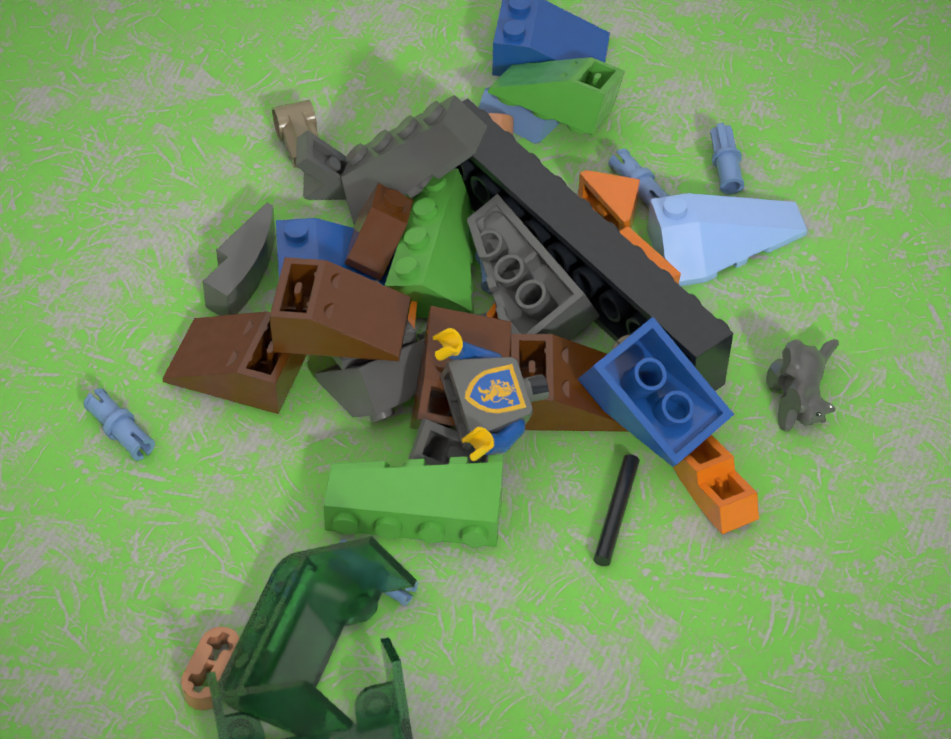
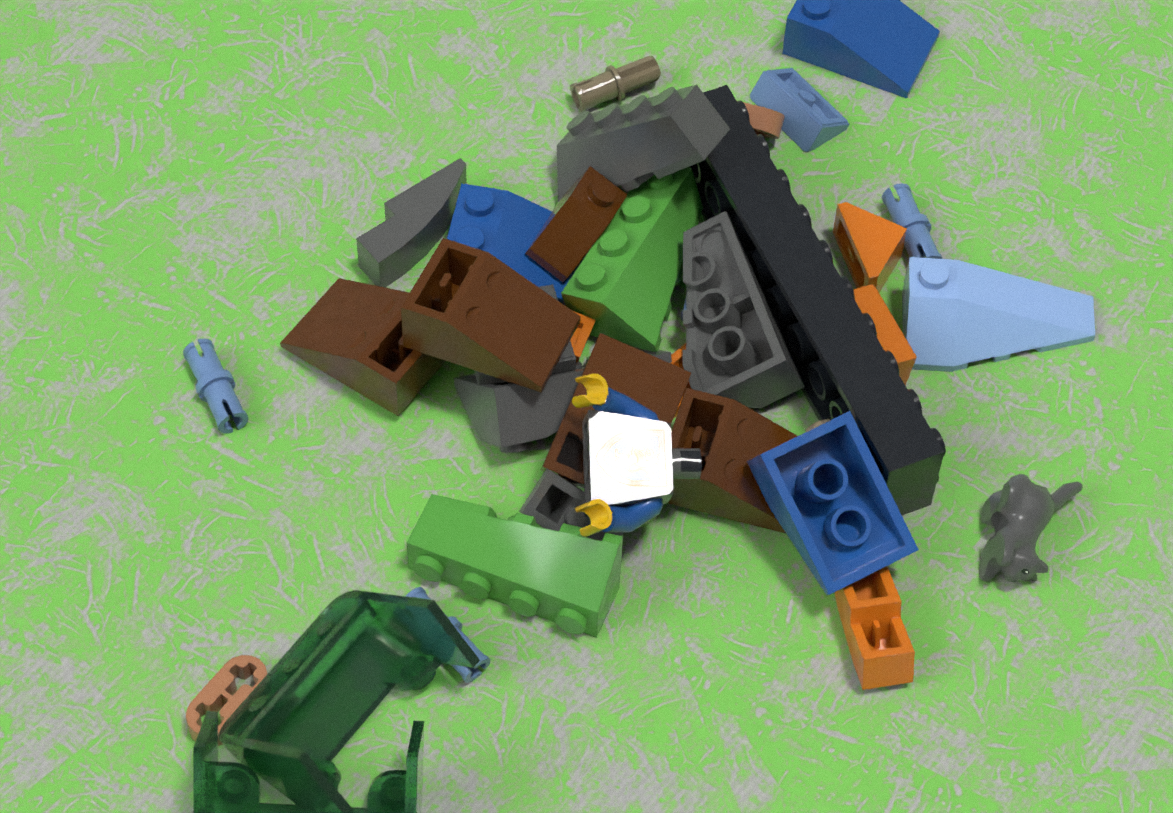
camera: 15 degrees right, 5 degrees up
(292, 121) = (529, 77): dark tan piece -> none
(321, 168) = (539, 124): dark grey slope -> none
(368, 122) = (614, 82): none -> dark tan axle
(567, 91) = (853, 96): bright green slope -> none
(616, 510) = (749, 628): black bar -> none
(726, 159) = (1026, 223): medium blue axle -> none

